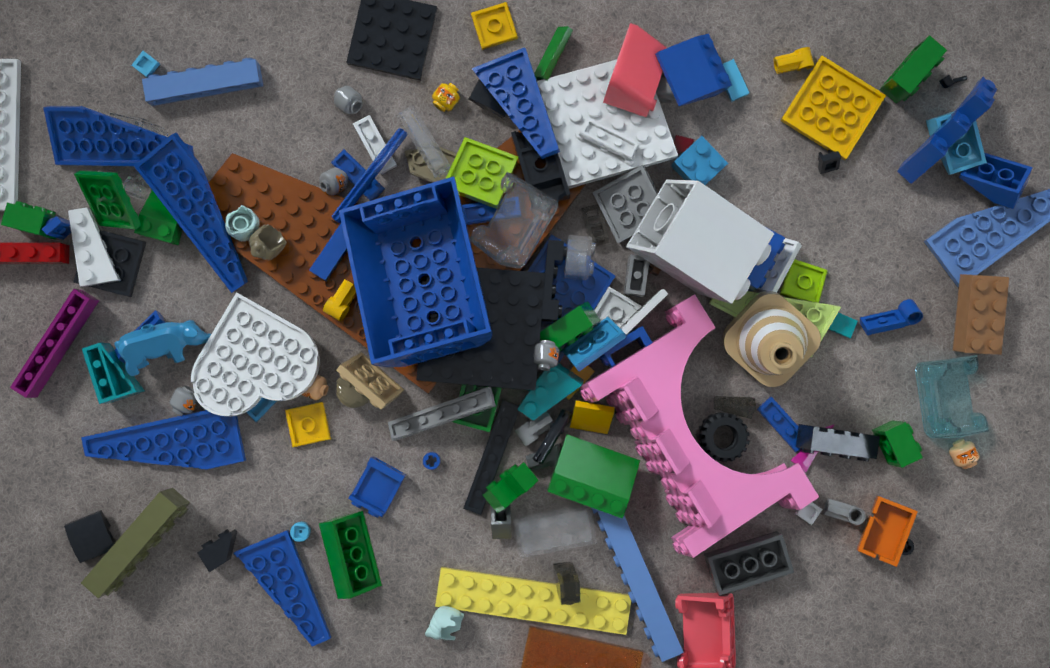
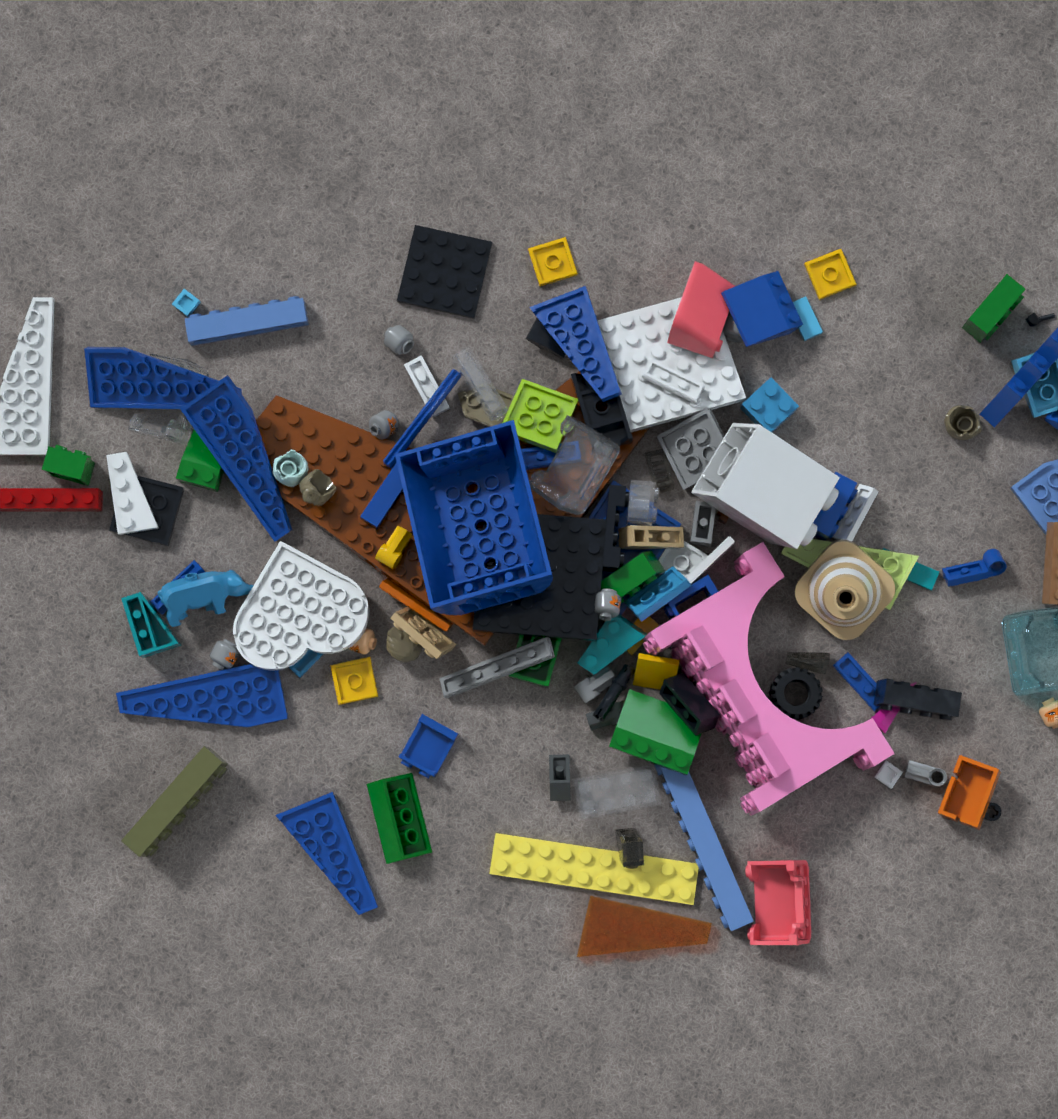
camera: 10 degrees right, 5 degrees down
(54, 344) = (90, 594): magenta brick -> none
(57, 227) = (96, 472): blue plate -> none
(90, 536) = (124, 798): black slope -> none
(108, 199) = (151, 443): green plate -> none
(218, 552) = (260, 814): black slope -> none
(300, 531) = (346, 793): medium azure tile -> none
(354, 172) = (406, 415): blue tile -> none
(358, 349) = (419, 607): none -> orange tile
(426, 457) = (480, 716): blue bush -> none
(444, 622) = (500, 890): light aqua hair -> none
(446, 97) = (501, 336): yellow head -> none
(492, 456) = (549, 716): black tile -> none
(512, 484) = (571, 743): green brick -> none
(553, 53) = (614, 290): green tile -> none
(587, 289) = (650, 537): none -> tan slope
(624, 449) = (689, 704): none -> black brick
(682, 143) = (751, 384): dark red tile -> none
(748, 563) = (823, 827): dark grey brick -> none
(756, 38) = (830, 274): none -> yellow tile
(793, 61) = (871, 298): yellow piece -> none
(804, 282) = (881, 530): lime tile -> none
(829, 161) = (907, 404): black tile -> none
(833, 107) = (911, 347): yellow plate -> none
(885, 179) = (962, 422): none -> dark tan hair
(898, 443) = (980, 700): green brick -> none

